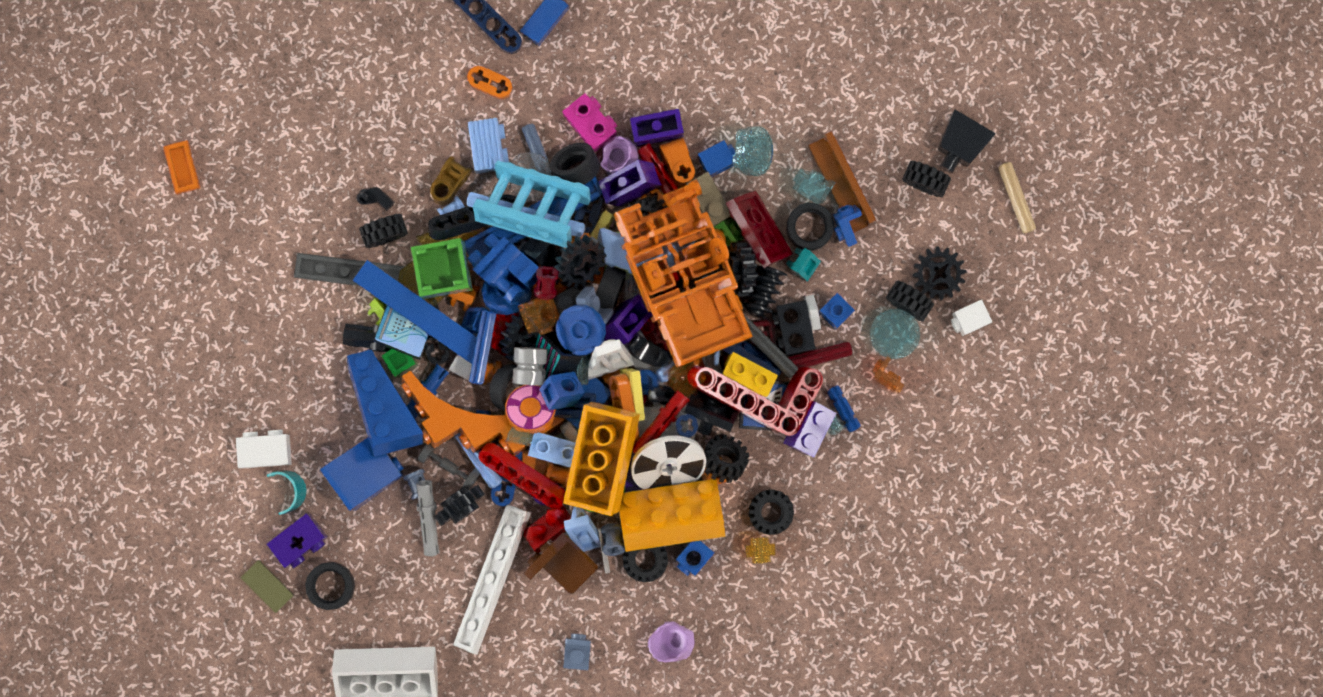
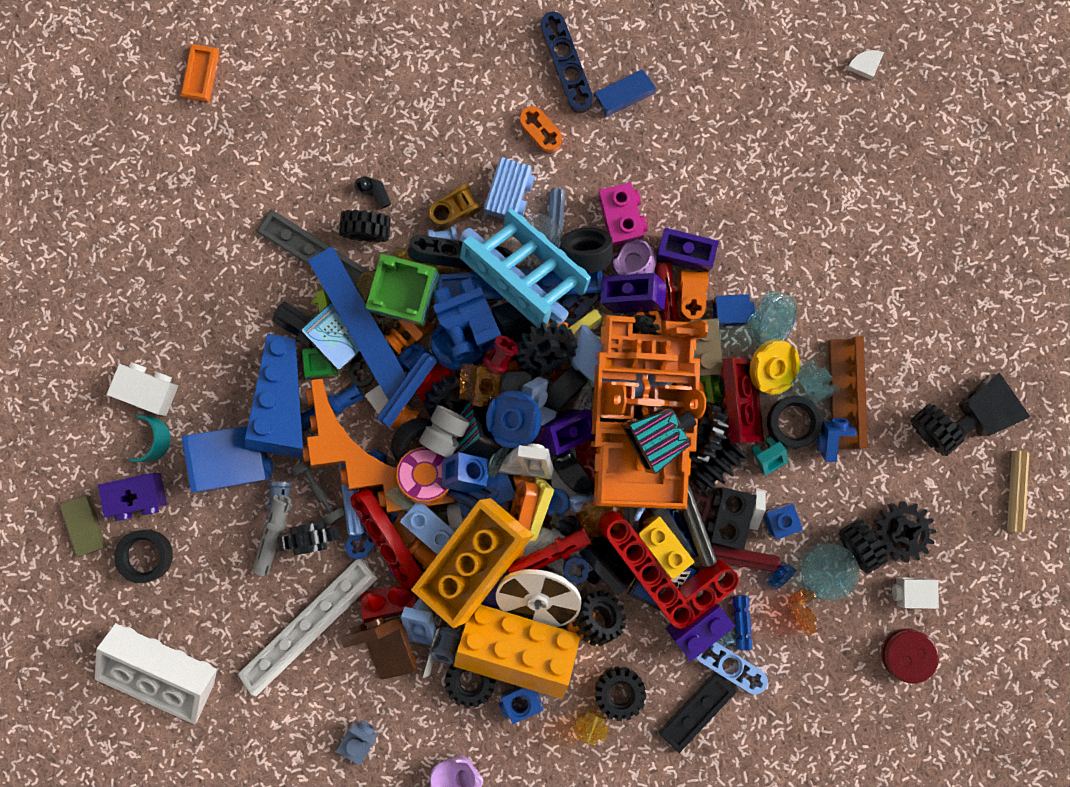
camera: 30 degrees right, 0 degrees up
(454, 312) = (396, 341): none -> orange bush
(702, 289) = (659, 437): none -> torso
(772, 189) = (774, 366): none -> yellow tile
(840, 498) = (697, 712): none -> black tile
(856, 358) = (786, 571): none -> clear blue tile
(868, 444) = (751, 670): none -> light blue beam
(989, 371) = (910, 655): none -> dark red head

